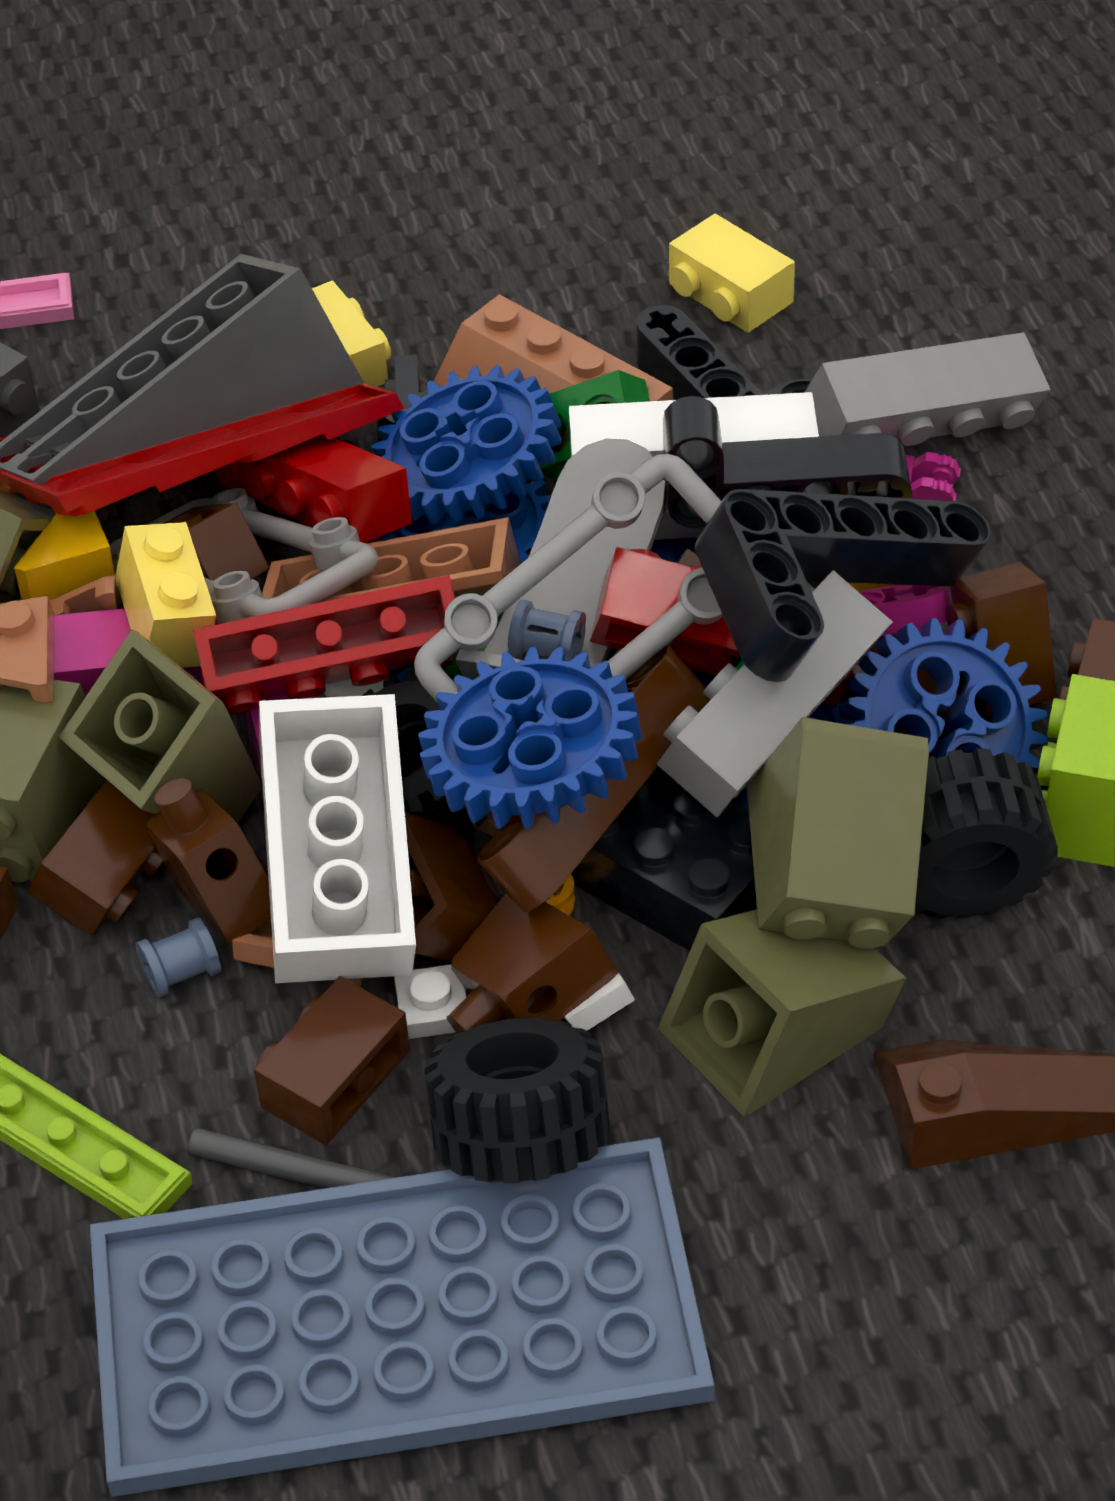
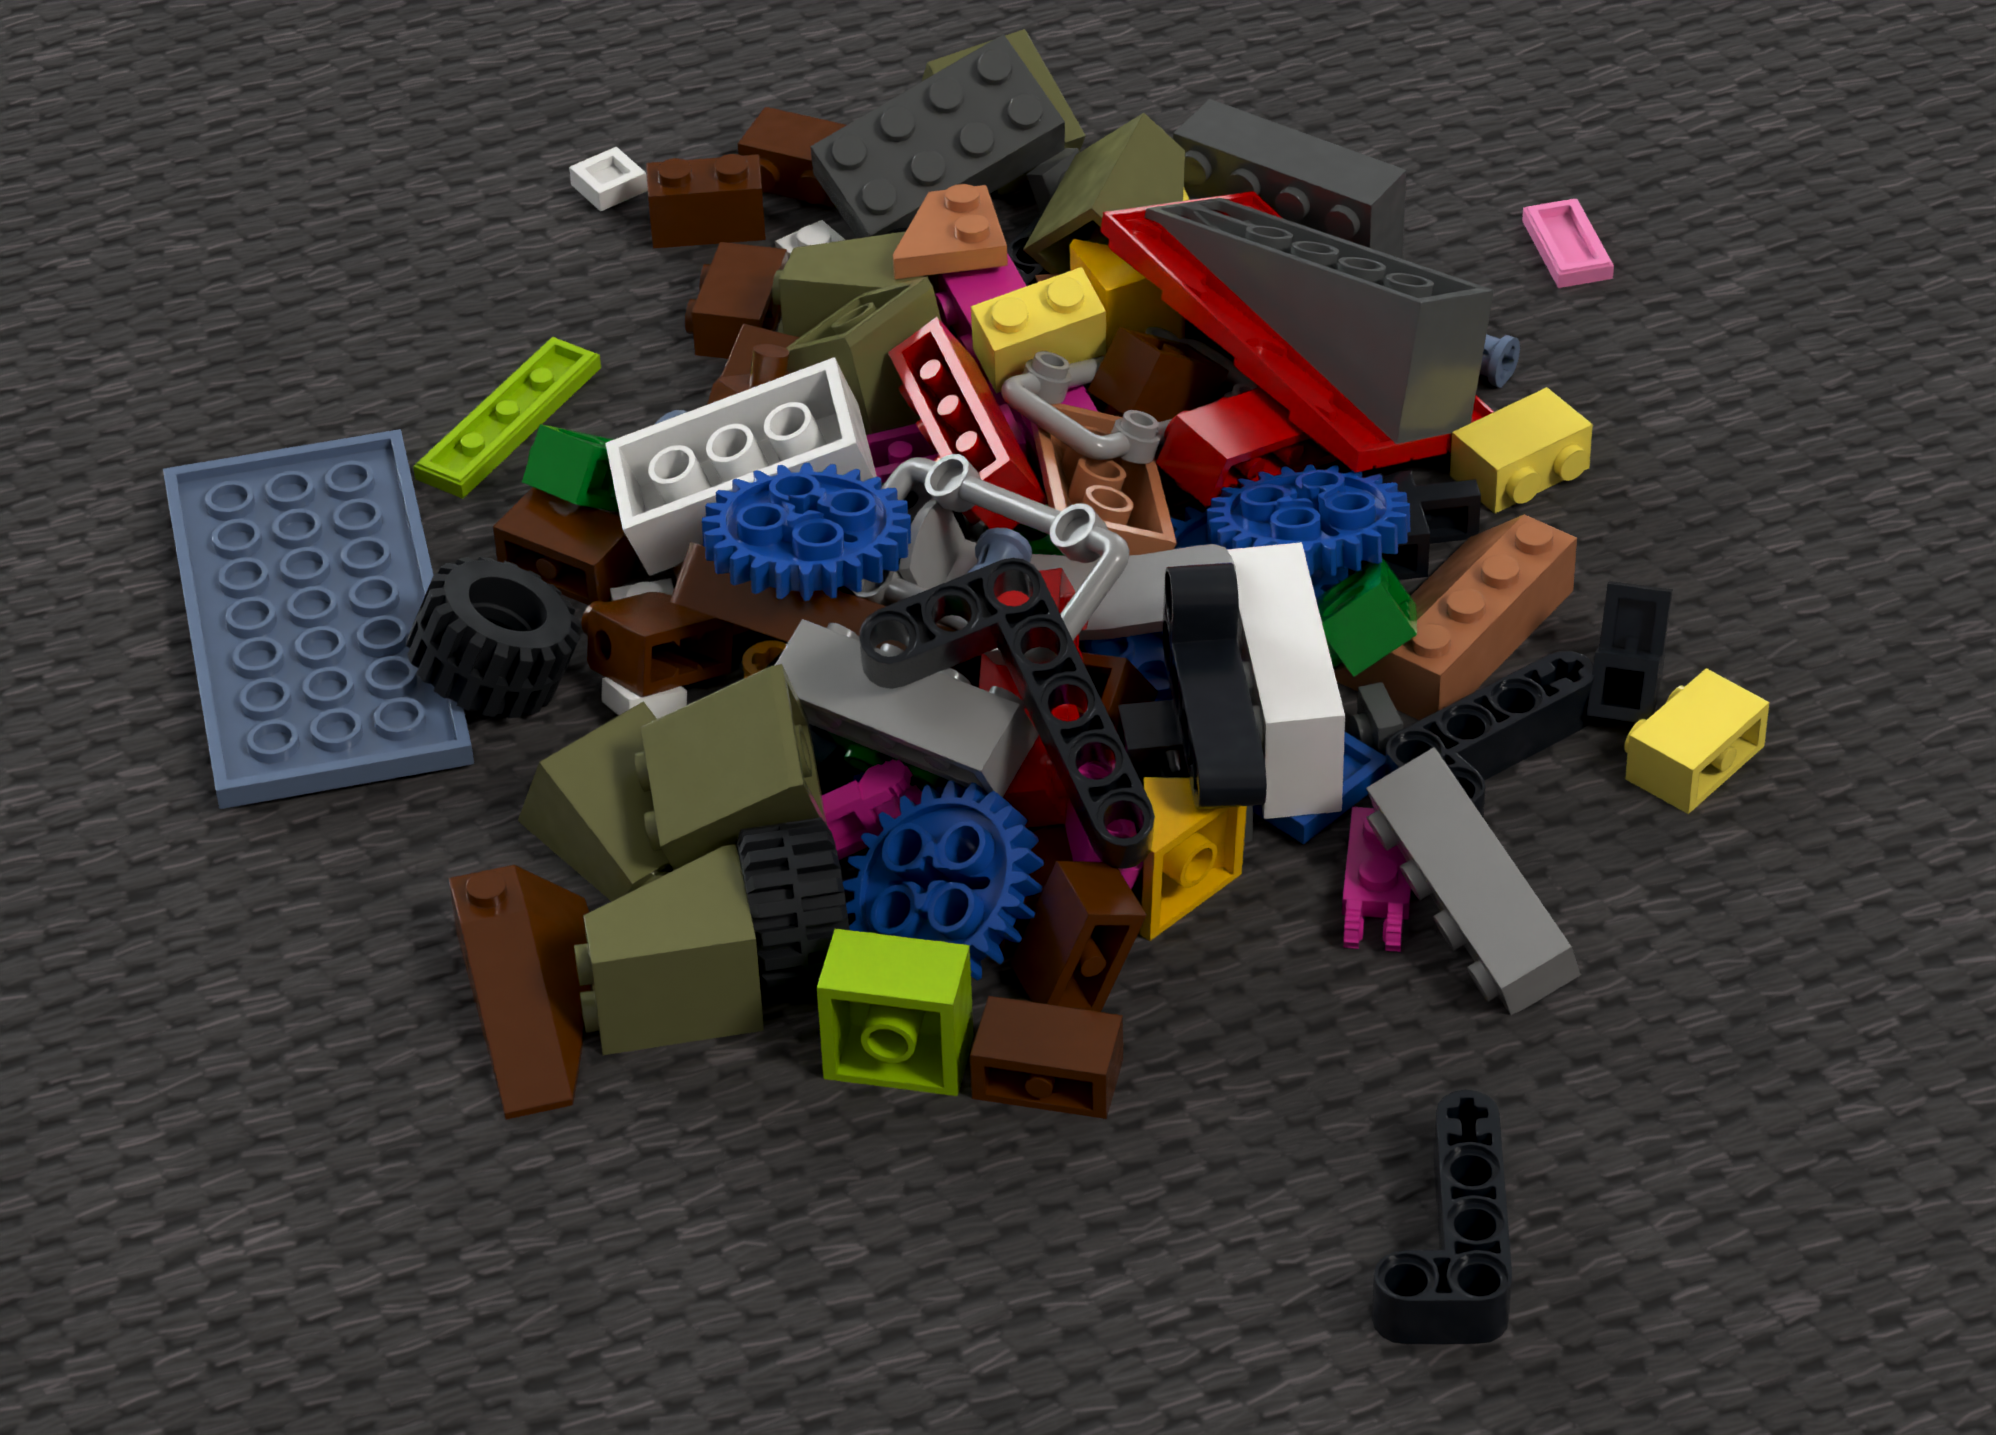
camera: 85 degrees right, 5 degrees down
(247, 1010) = (571, 467): none -> green brick
(276, 1161) = (484, 519): dark grey bar -> none
(626, 292) = (1630, 652): none -> black brick
(1018, 932) = (673, 960): none -> olive slope

